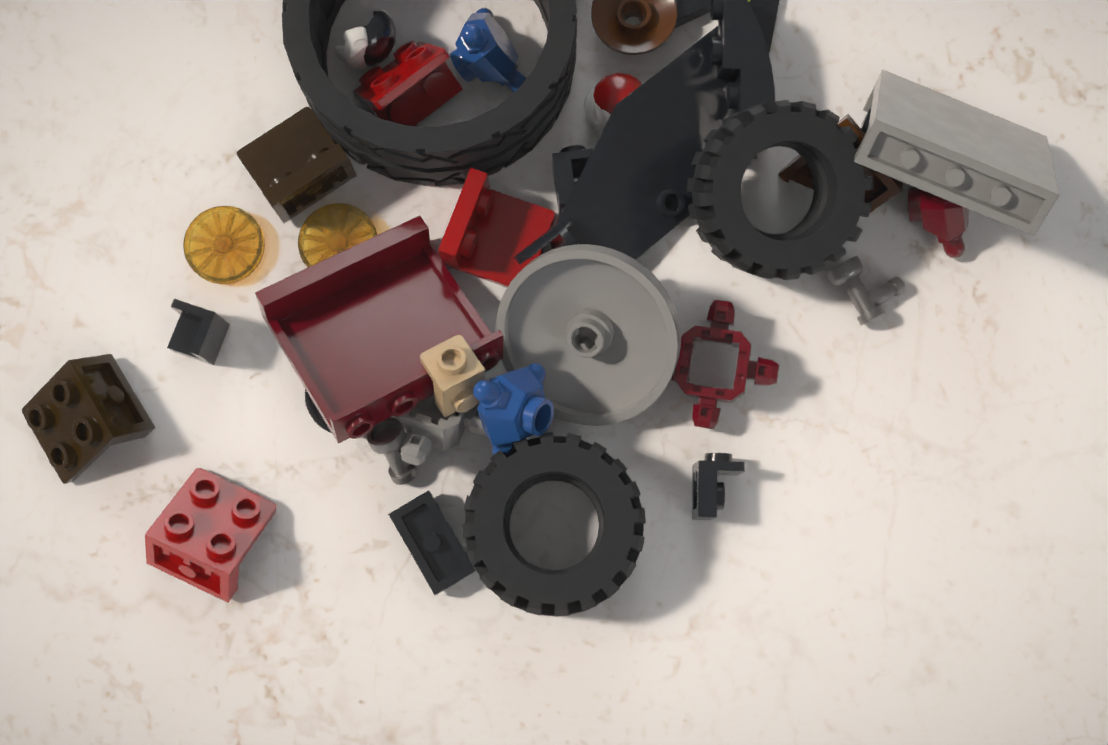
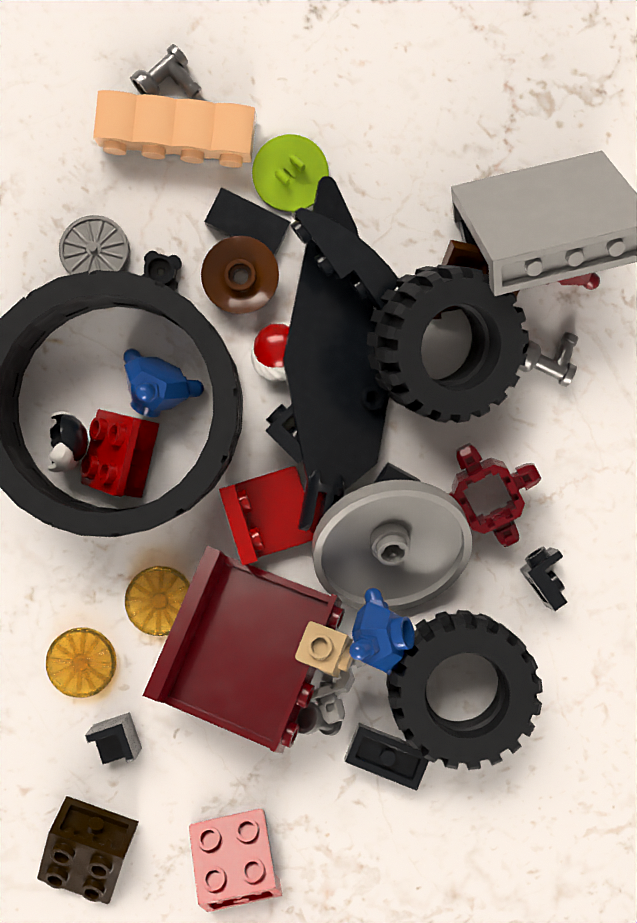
camera: 40 degrees left, 10 degrees up
(296, 164) = (85, 572): dark brown bracket -> none

